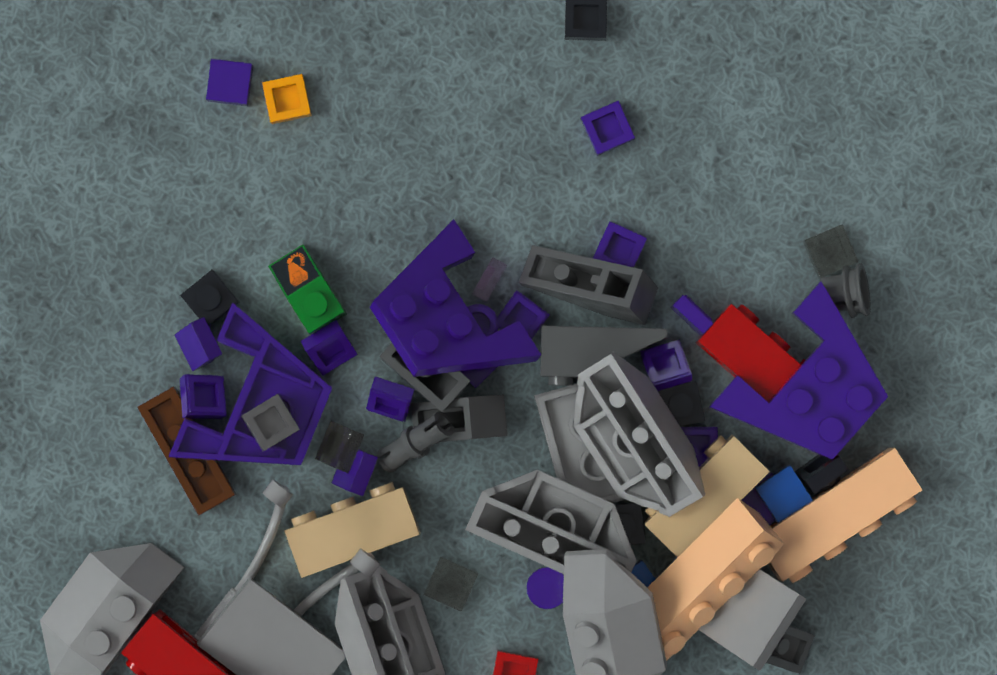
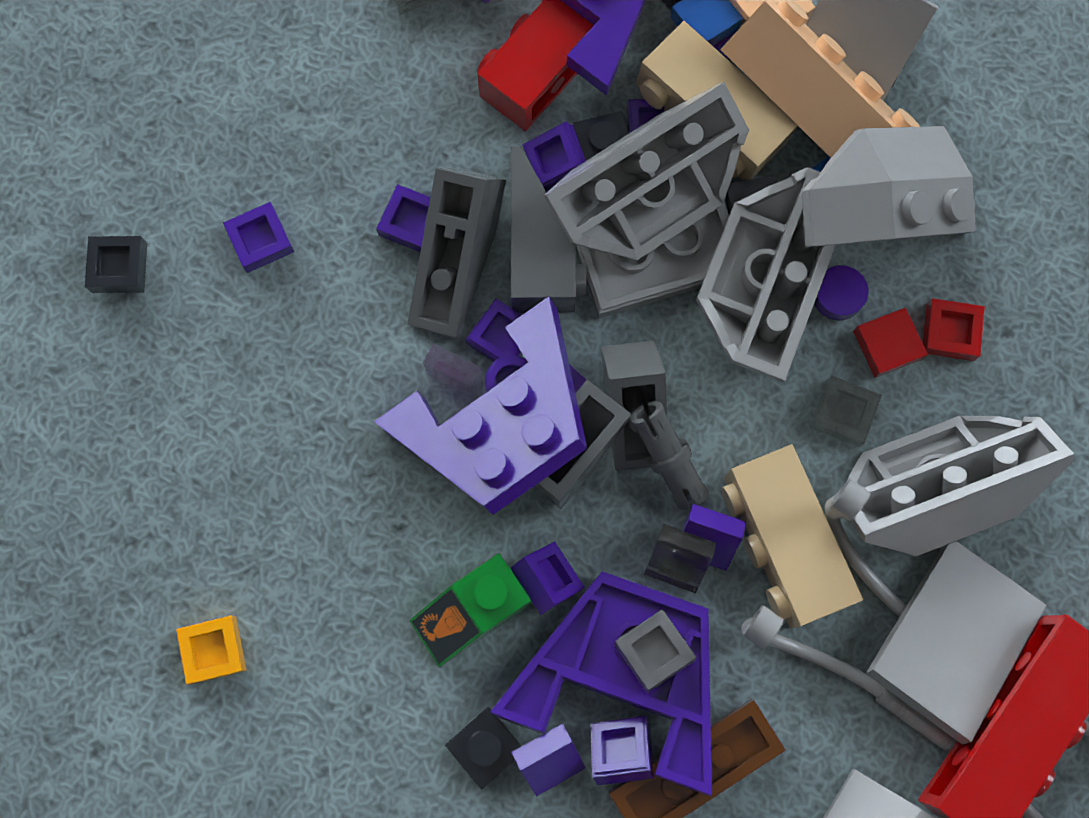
camera: 90 degrees left, 10 degrees down
(229, 82) = (186, 731): dark purple tile -> none
(390, 399) = (613, 493): dark purple tile -> none
(505, 623) = (890, 342): none -> red tile
(692, 314) = (492, 126): dark purple tile -> none

